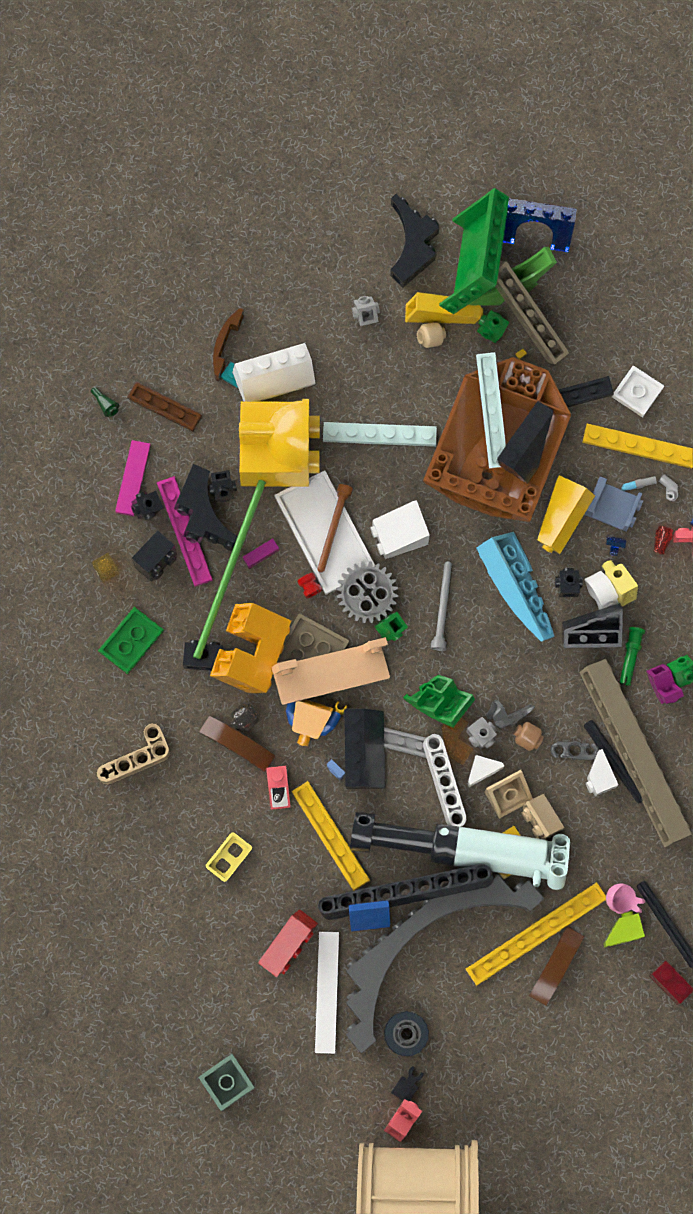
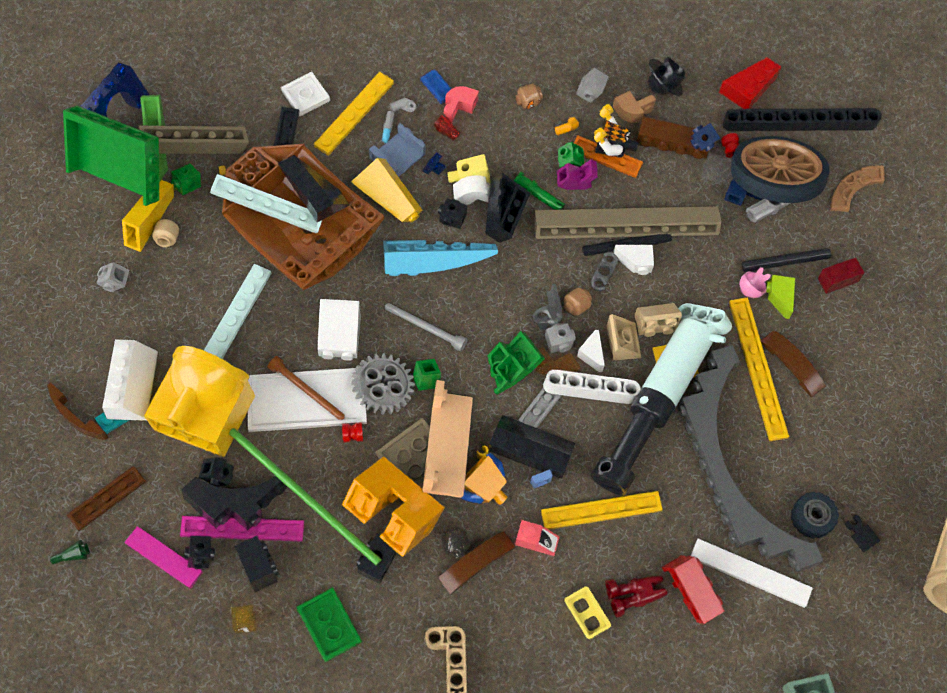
camera: 70 degrees left, 10 degrees down
(260, 553) = (299, 464): magenta piece -> none
(268, 897) = (641, 589): none -> dark red piece
(369, 915) = (694, 501): blue tile -> none
(403, 1120) = (895, 549): coral brick -> none
(414, 885) = (688, 468): black beam -> none
(416, 253) = (63, 207): black arch -> none

